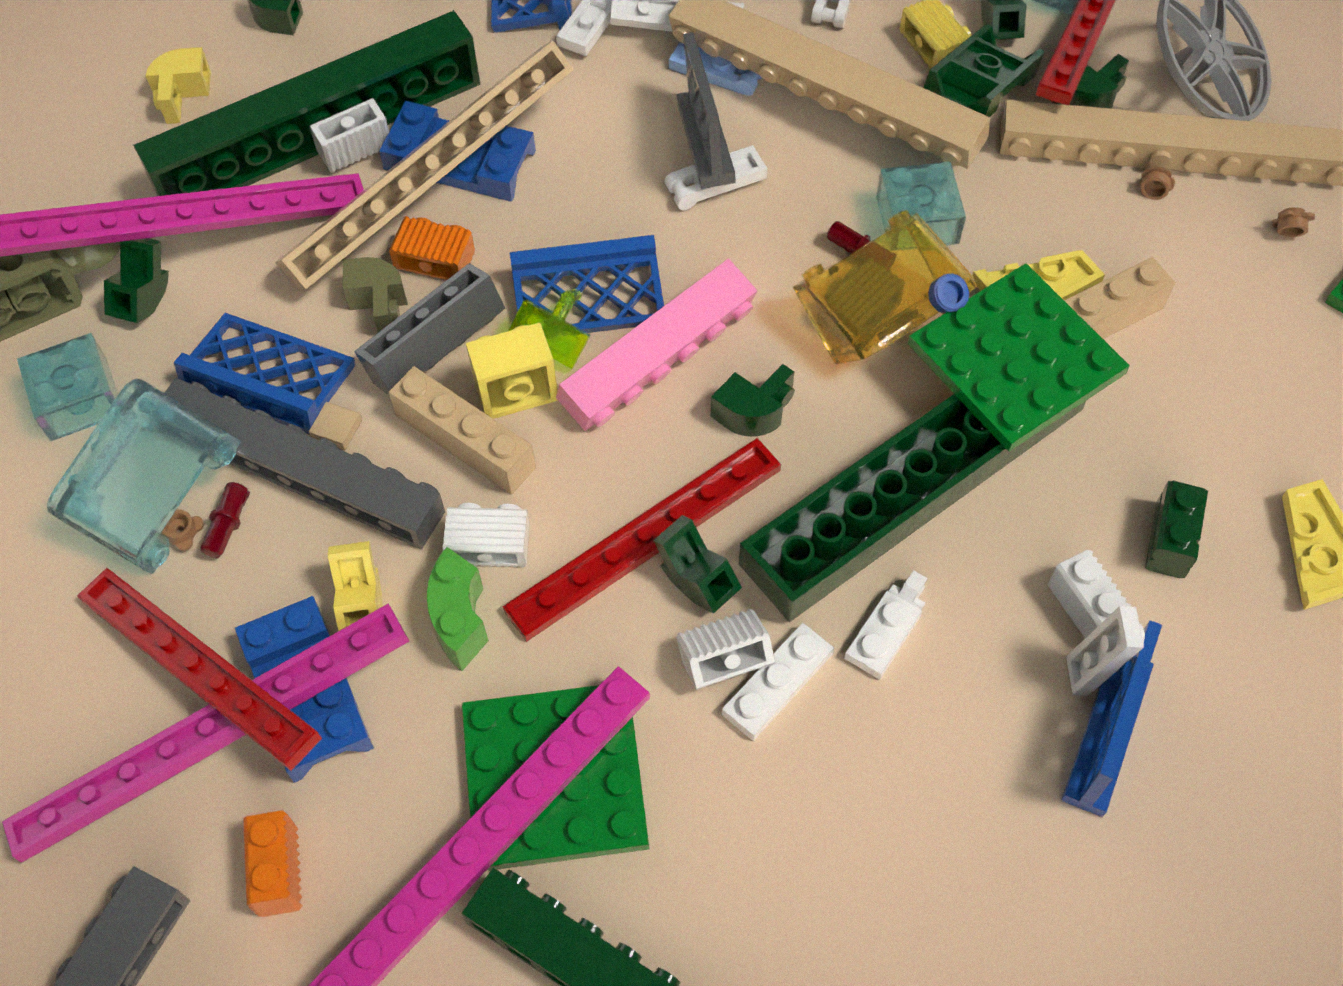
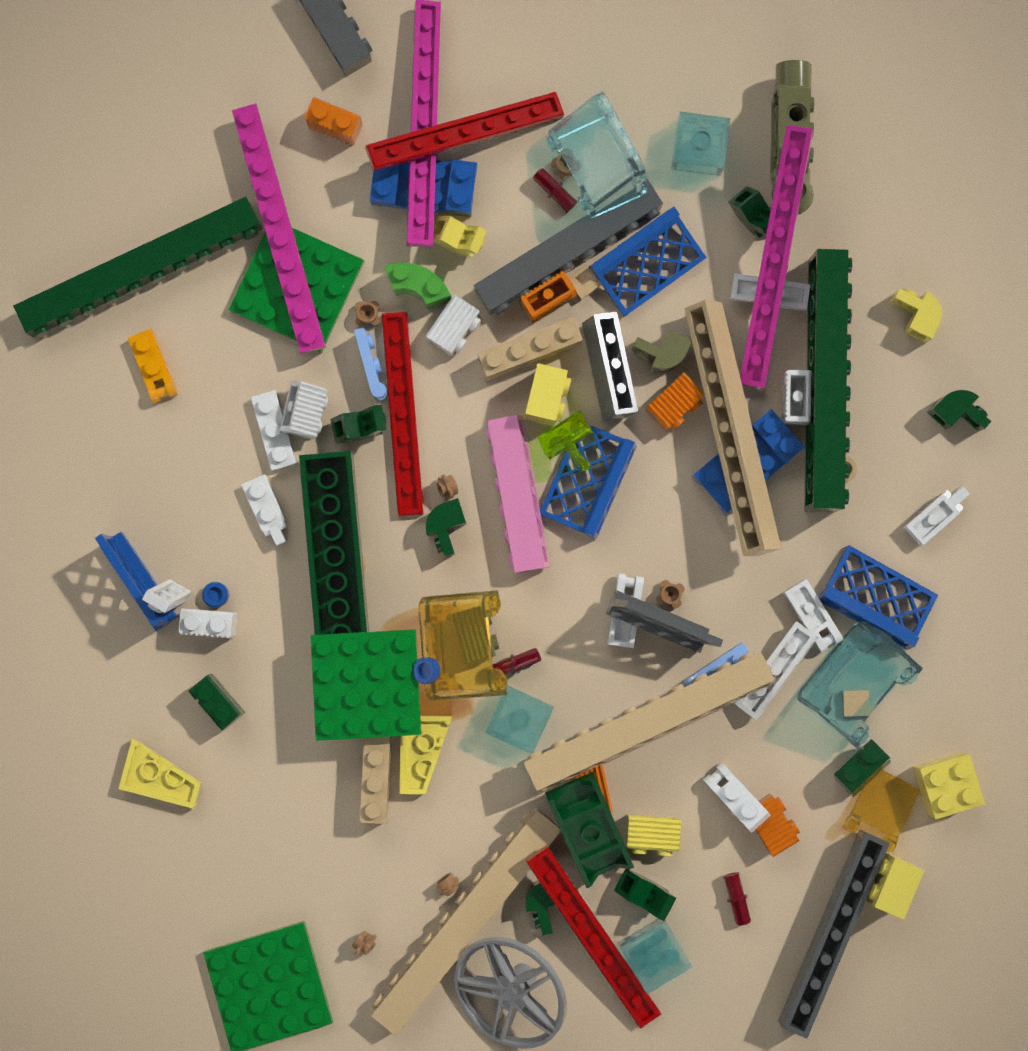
camera: 115 degrees right, 25 degrees up
(239, 244) = (794, 294): none -> white plate
(380, 440) = (548, 297): none -> orange brick
(536, 644) = (362, 308): none -> medium nougat plate
(605, 606) = (371, 365): none -> light blue plate
(664, 148) = (667, 587): none -> medium nougat plate
(704, 427) = (447, 487): none -> medium nougat plate
(801, 908) = (152, 365): none -> light orange plate
(1046, 622) = (215, 594): none -> blue tile

